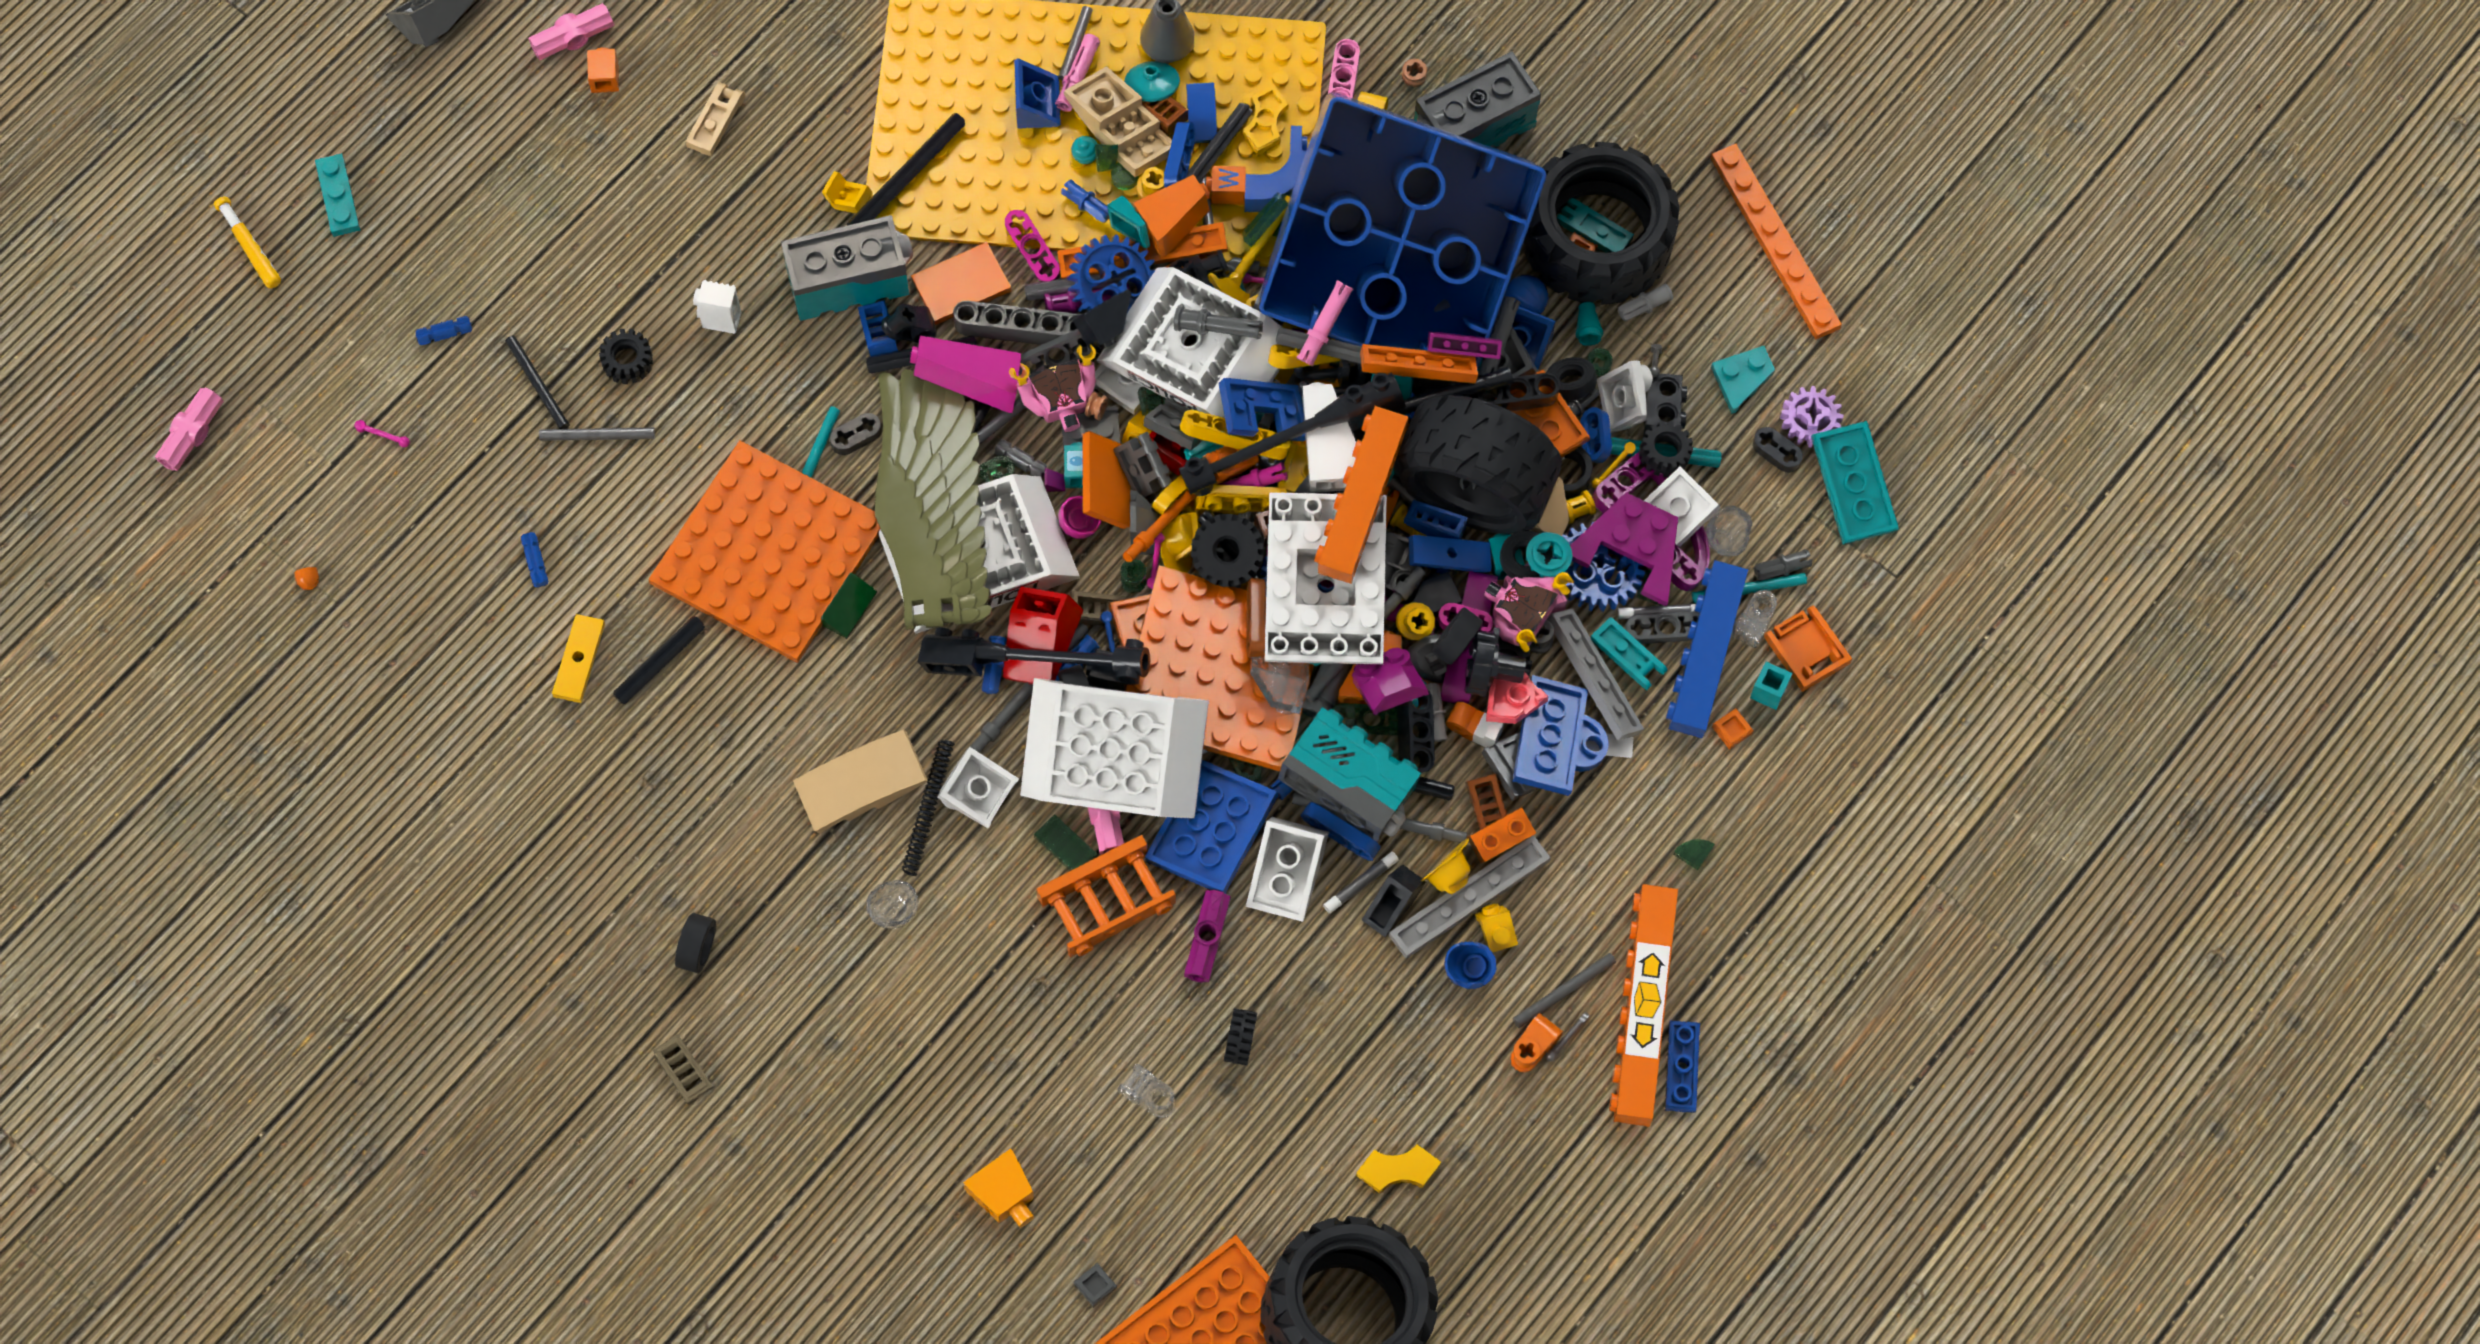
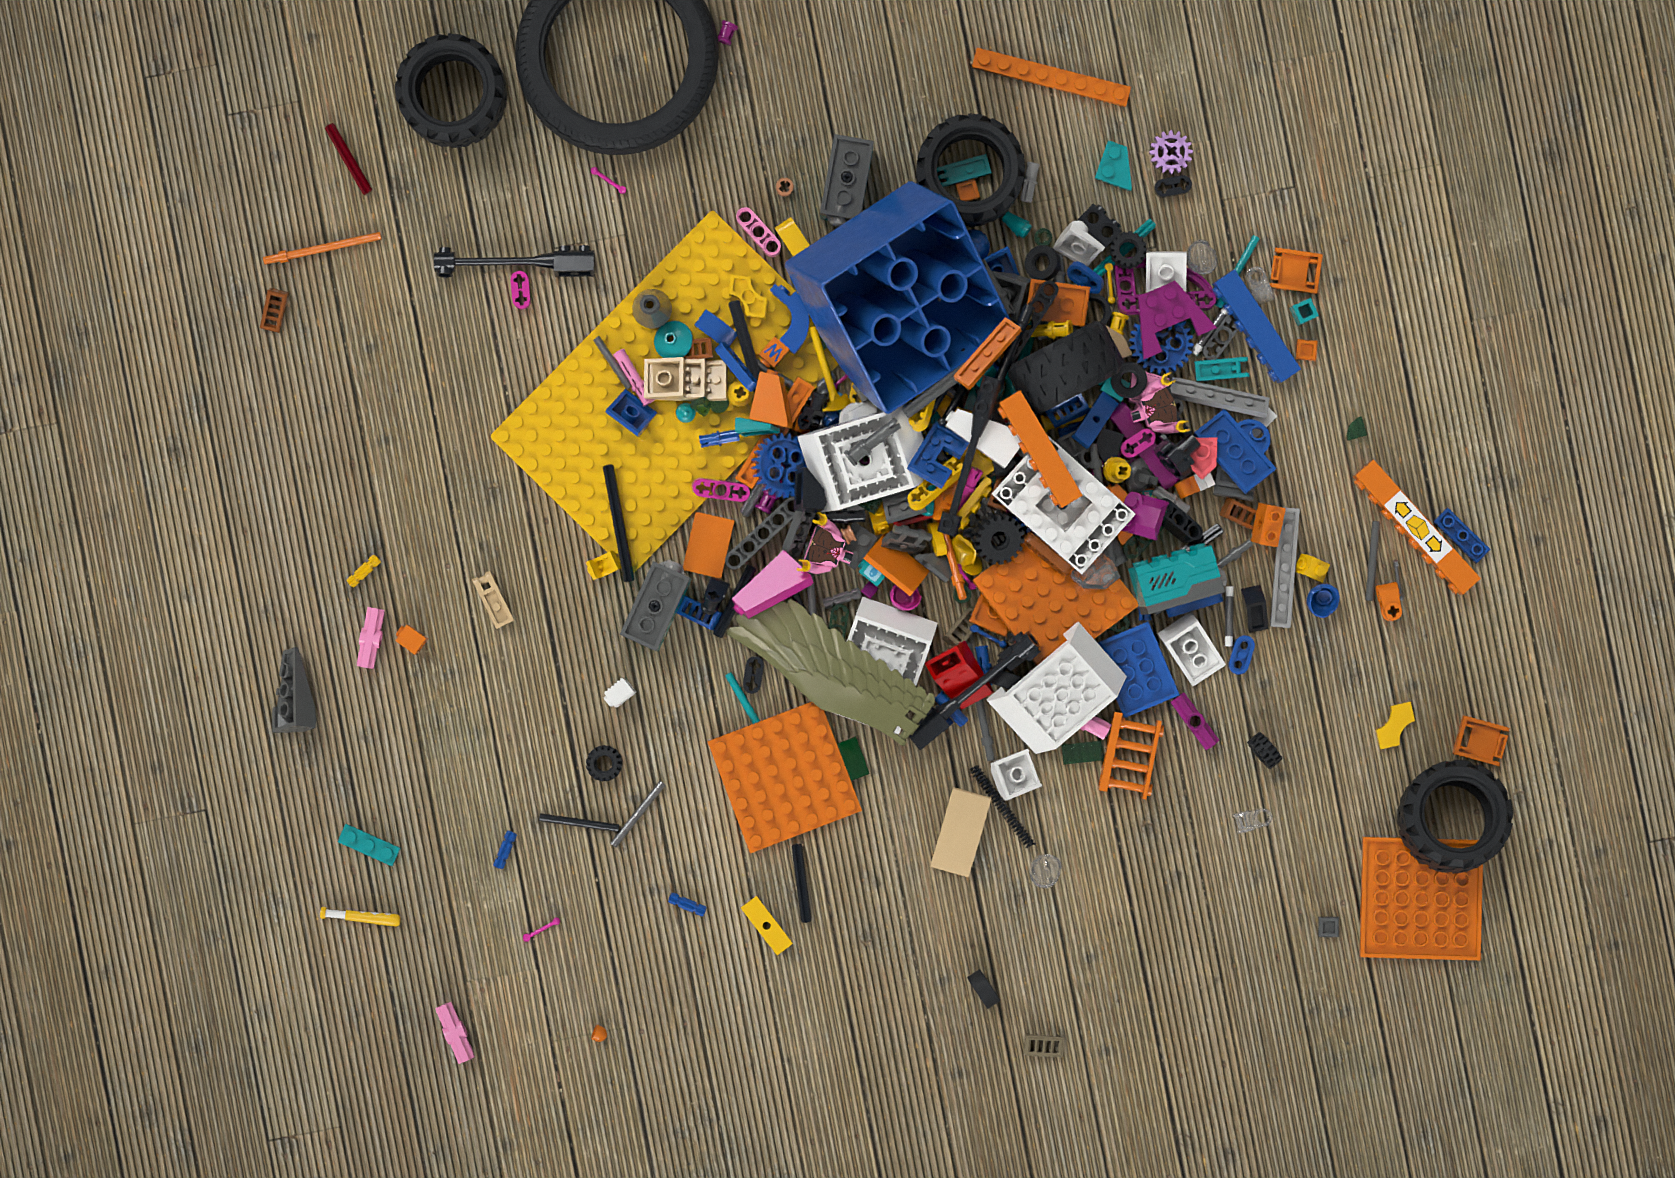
camera: 50 degrees left, 20 degrees up
(1002, 1189) = (1243, 934): light orange torso -> none
(1115, 388) = (846, 516): none -> black pin
(1264, 219) = (815, 352): clear green tile -> none
(1324, 323) = (927, 395): bright pink pin -> none
(1327, 928) = (1241, 655): none -> blue plate
(1452, 871) = (1264, 567): yellow piece -> none
(1457, 636) = (1149, 459): black tyre -> none
(1464, 345) = (996, 318): magenta piece -> none
(1469, 1288) = (1483, 740): none -> orange container
(1542, 543) = (1144, 361): teal gear -> none
(1656, 349) = (1061, 200): flat silver hinge -> none
(1782, 565) = (1240, 243): dark grey axle -> none
(1855, 482) = (1227, 163): teal tile -> none

